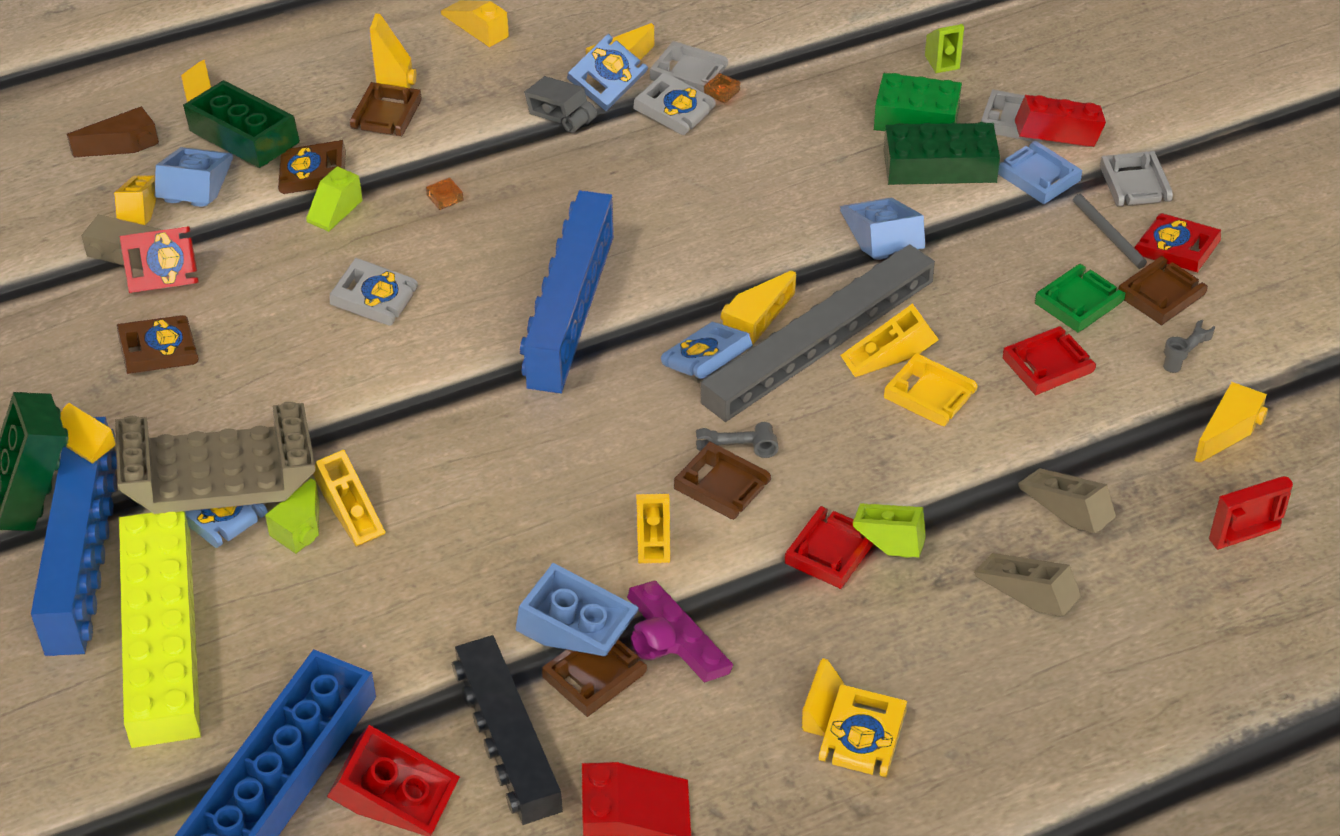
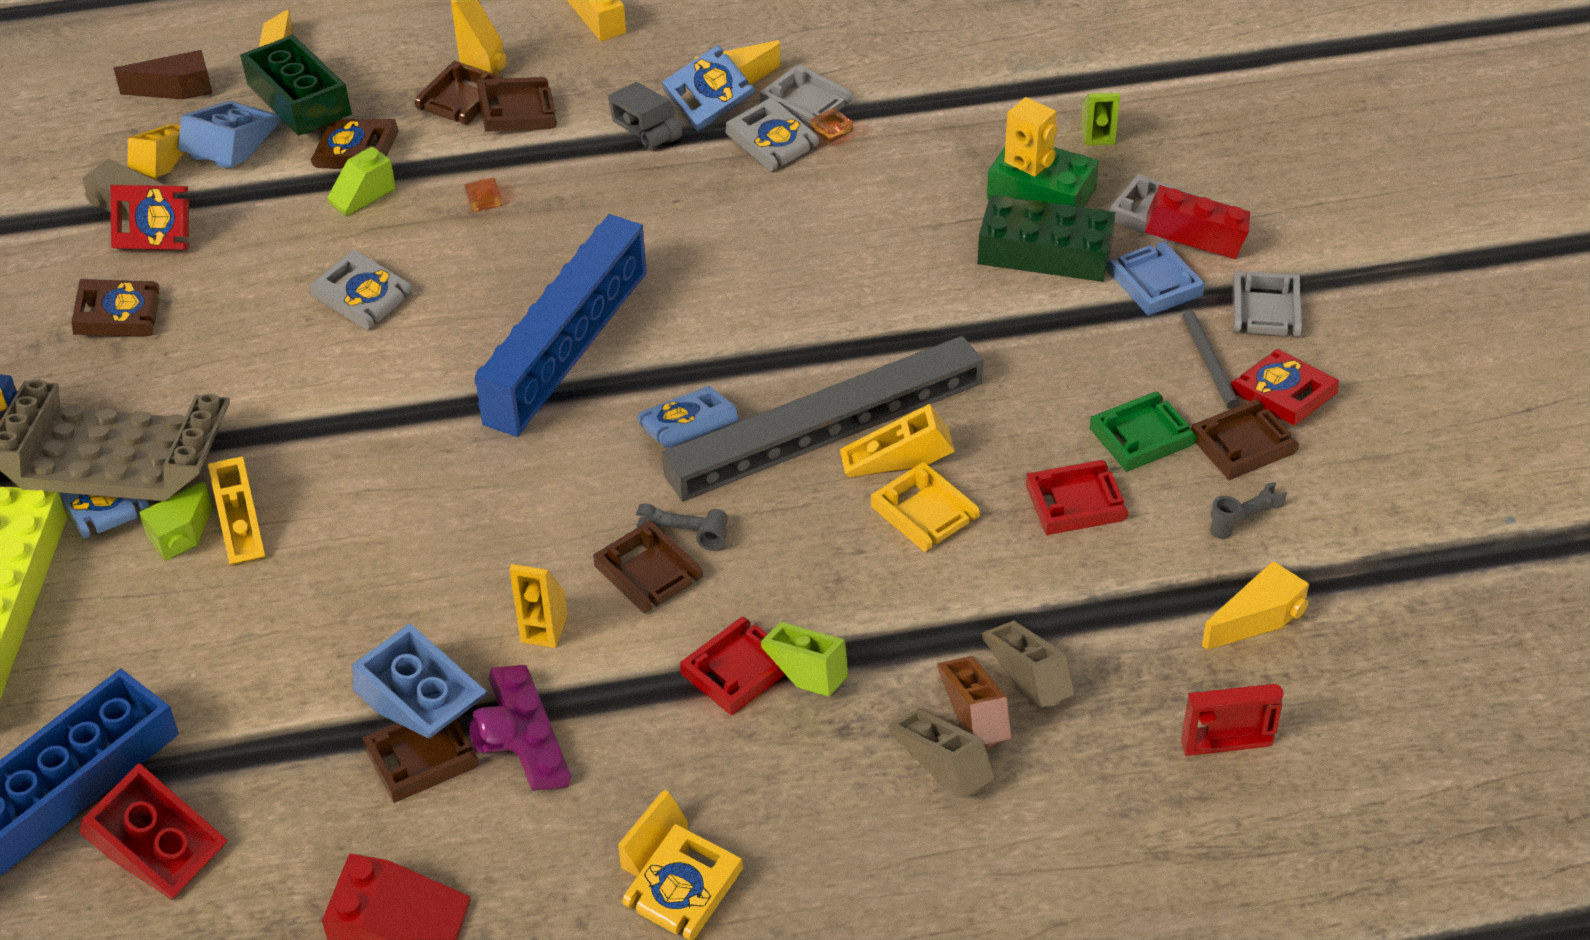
camera: 15 degrees right, 0 degrees up
(446, 111) = (520, 101): none -> reddish brown container
(507, 730) = (296, 800): black brick -> none
(759, 306) = (767, 378): yellow slope -> none
(884, 226) = (947, 311): medium blue slope -> none
(909, 70) = (1030, 136): none -> yellow brick
(1039, 534) = (976, 700): none -> dark orange slope

